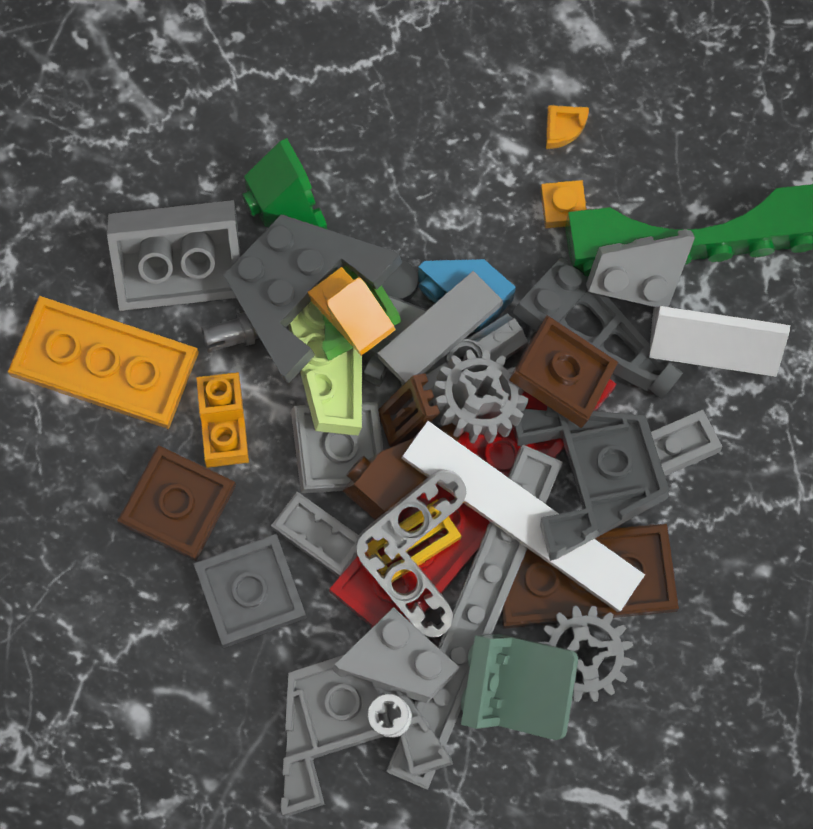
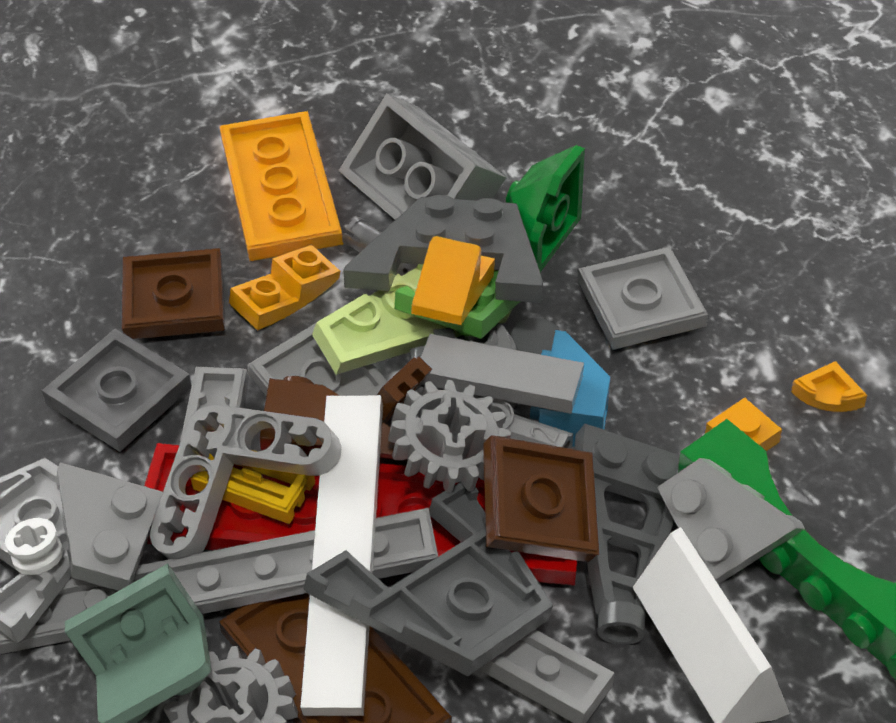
camera: 60 degrees right, 25 degrees down
(407, 186) = (642, 298): none -> light grey plate

